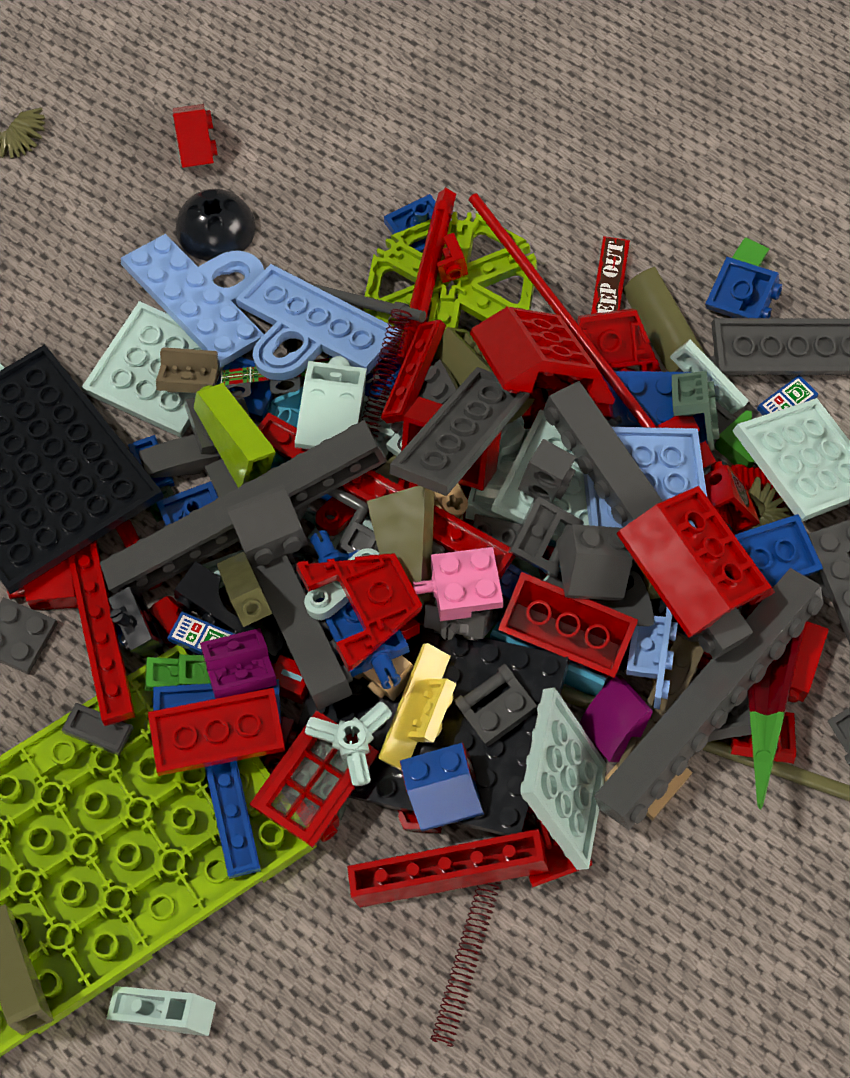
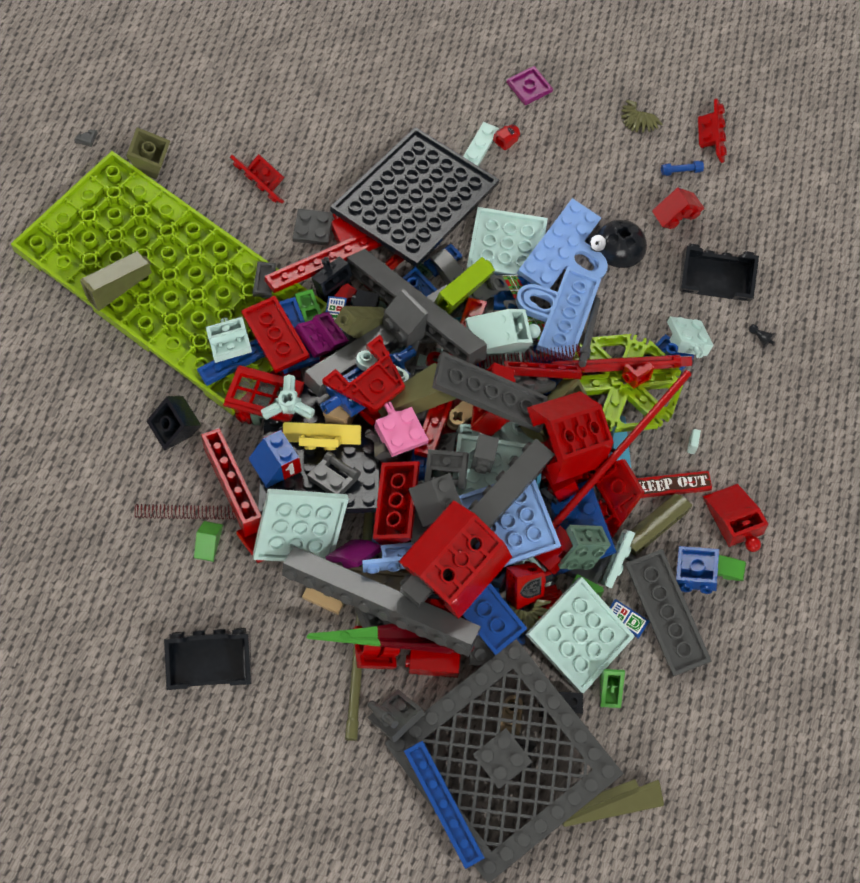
camera: 70 degrees right, 0 degrees up
(77, 56) = (711, 130): none -> red bracket
(117, 127) = (697, 167): none -> blue bar
(162, 1010) = (118, 364): light aqua slope -> none
(186, 370) = (505, 255): dark tan bracket -> none
(197, 808) = (228, 339): none -> light aqua plate
(209, 249) = (596, 242): none -> piece
(302, 943) = (173, 421): none -> black slope
(313, 121) = (718, 274): none -> black windscreen
(400, 186) = (690, 336): none -> light aqua plate
(426, 106) = (764, 337): none -> black piece
(524, 937) = (207, 540): none -> bright green slope
(557, 237) = (693, 441): none -> light aqua tile
(669, 226) = (734, 514): none -> red slope
(722, 979) = (208, 658): none -> black windscreen

